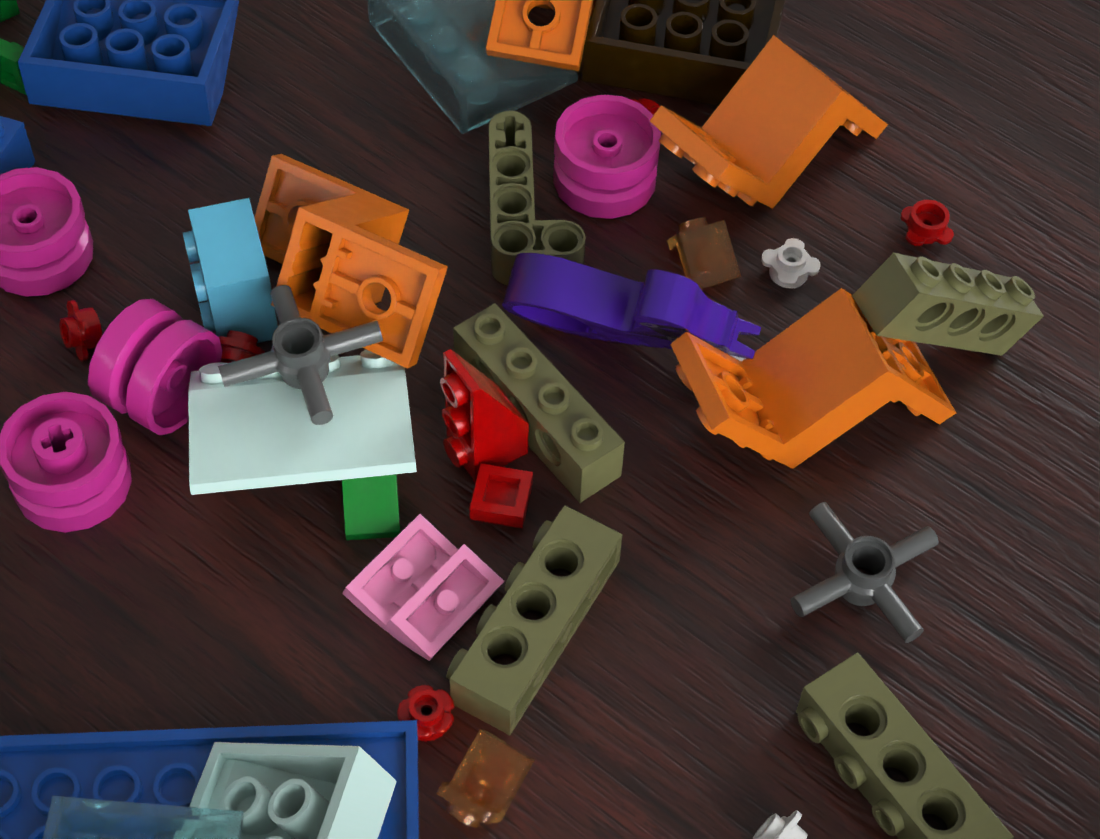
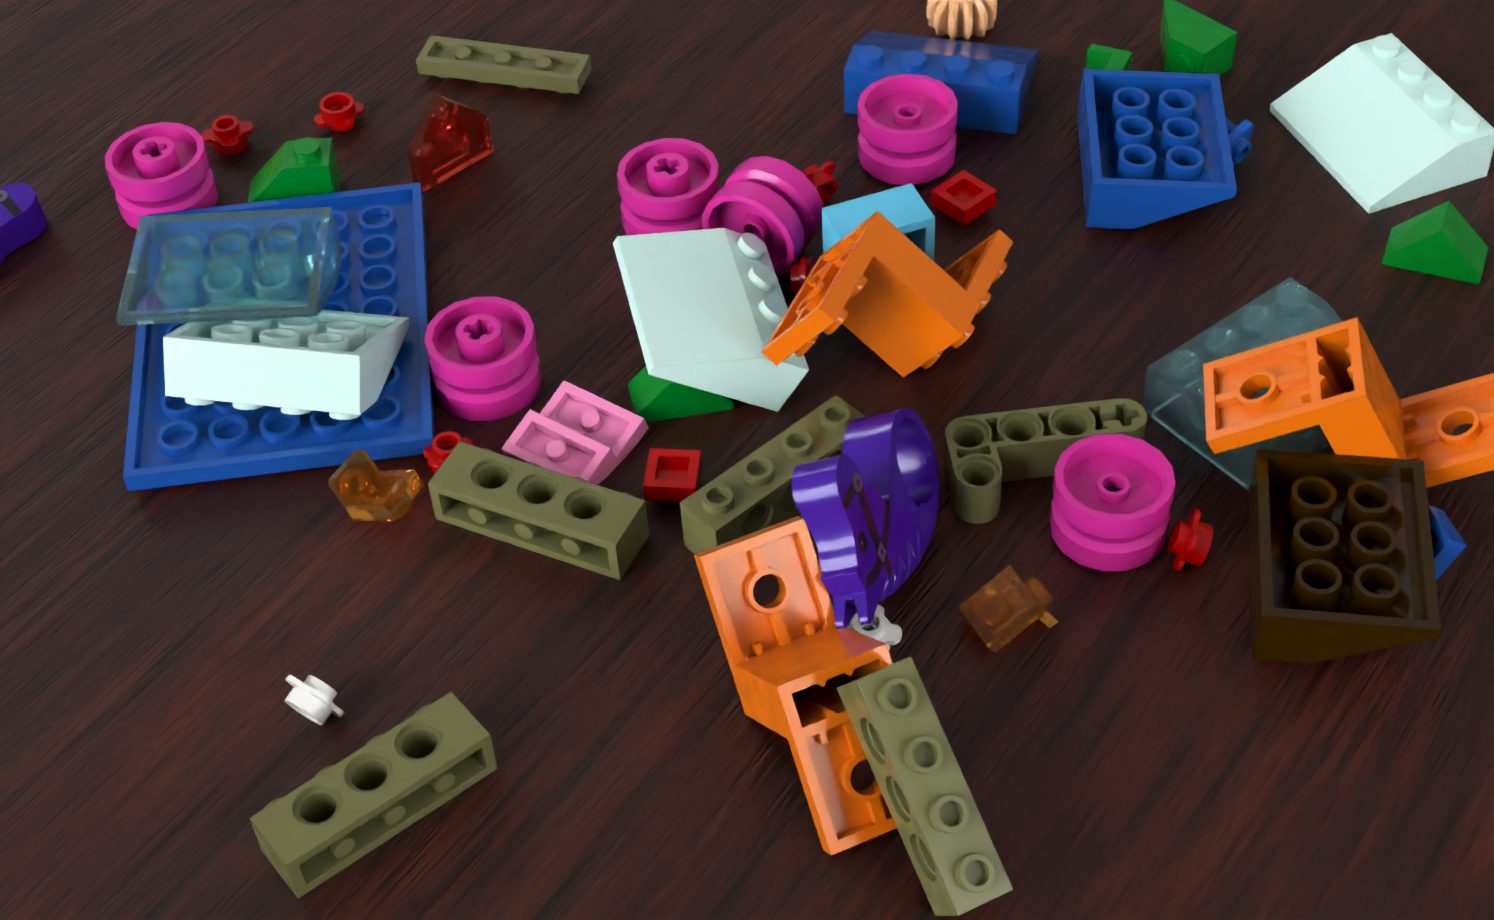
camera: 90 degrees right, 10 degrees down
(142, 209) = (963, 197): none -> red plate
(299, 370) = (752, 270): dark grey bar -> none
(300, 659) = (483, 358): none -> dark pink wheel
(479, 418) = (727, 405): red slope -> none
(766, 126) = (1190, 630): orange bracket -> none
(790, 264) = (1017, 703): white plate -> none
(860, 588) = (608, 777): dark grey bar -> none
(927, 223) = (1115, 812): red plate -> none

